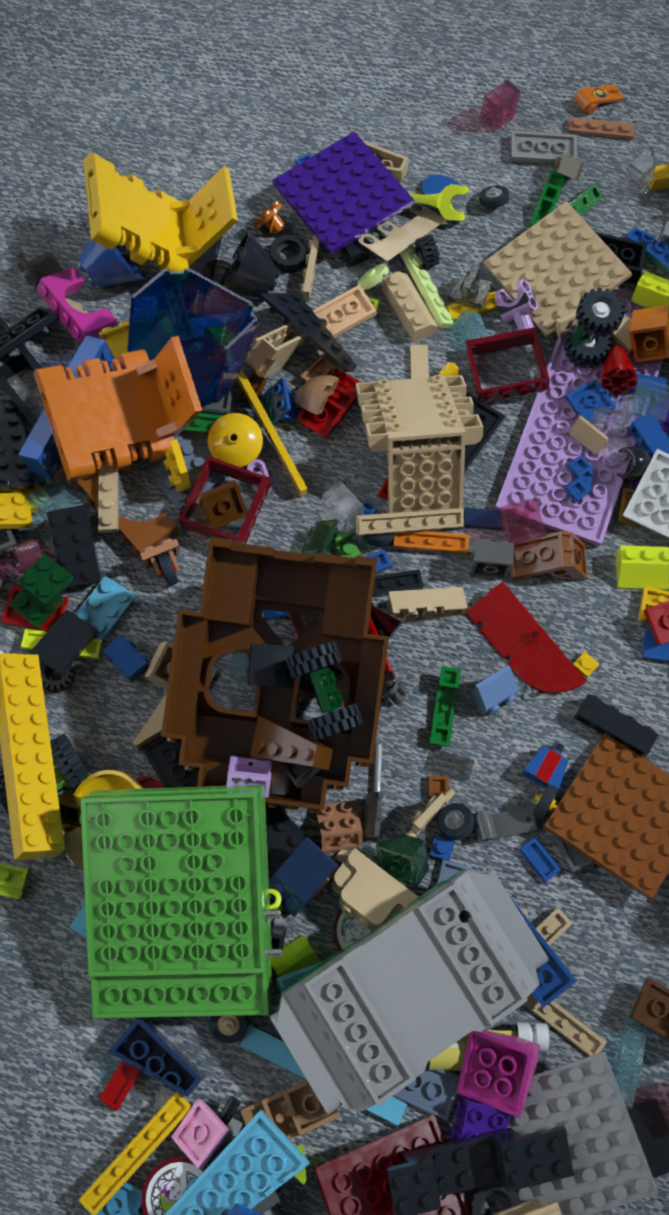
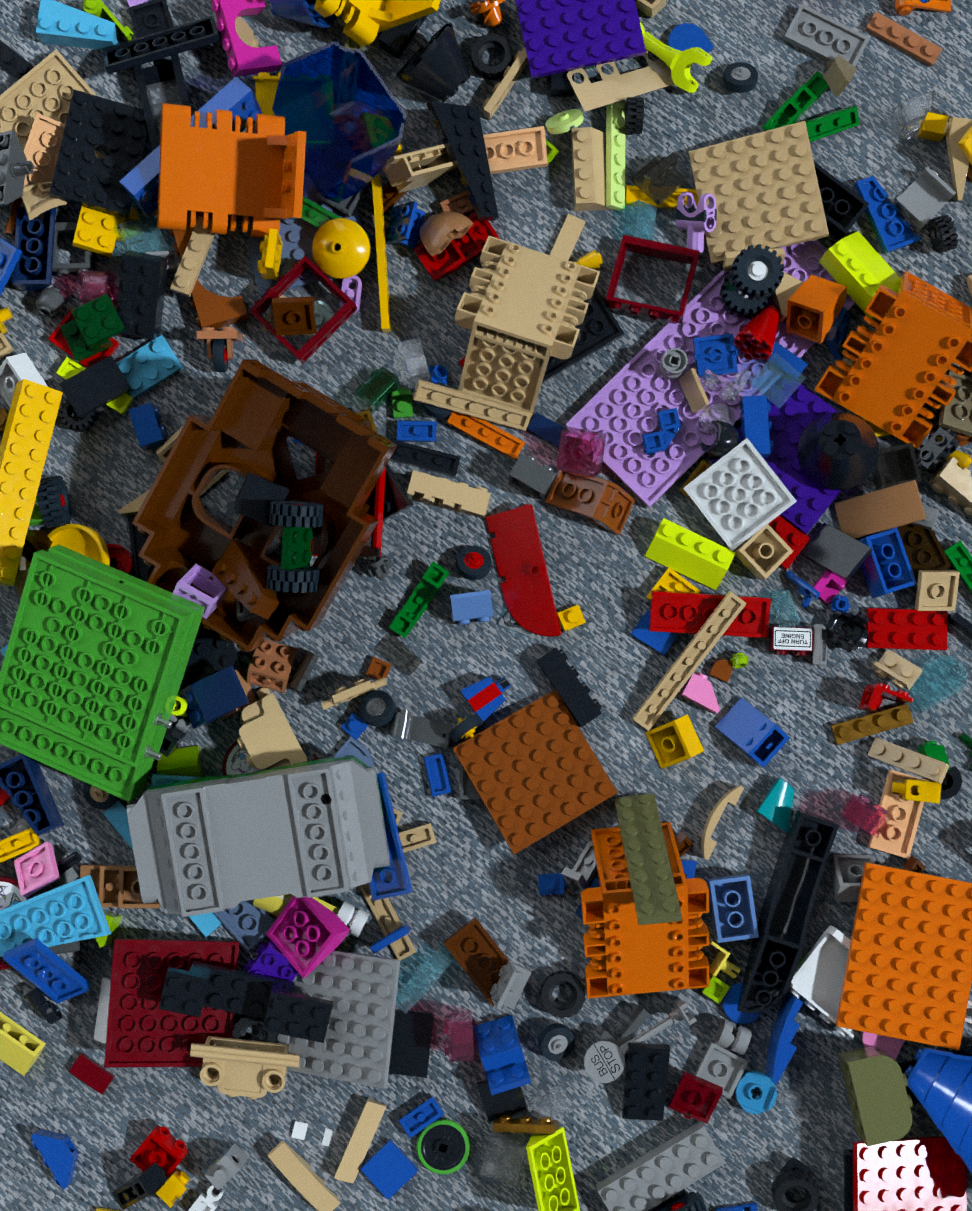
camera: 25 degrees right, 15 degrees up
(377, 768) = (330, 632): light grey bar -> none
(404, 858) = (312, 722): clear green slope -> none
(476, 654) = (473, 563): none -> black wheel
(561, 420) = (673, 363): none -> light grey wheel
(578, 1038) = (390, 938): none -> blue tile

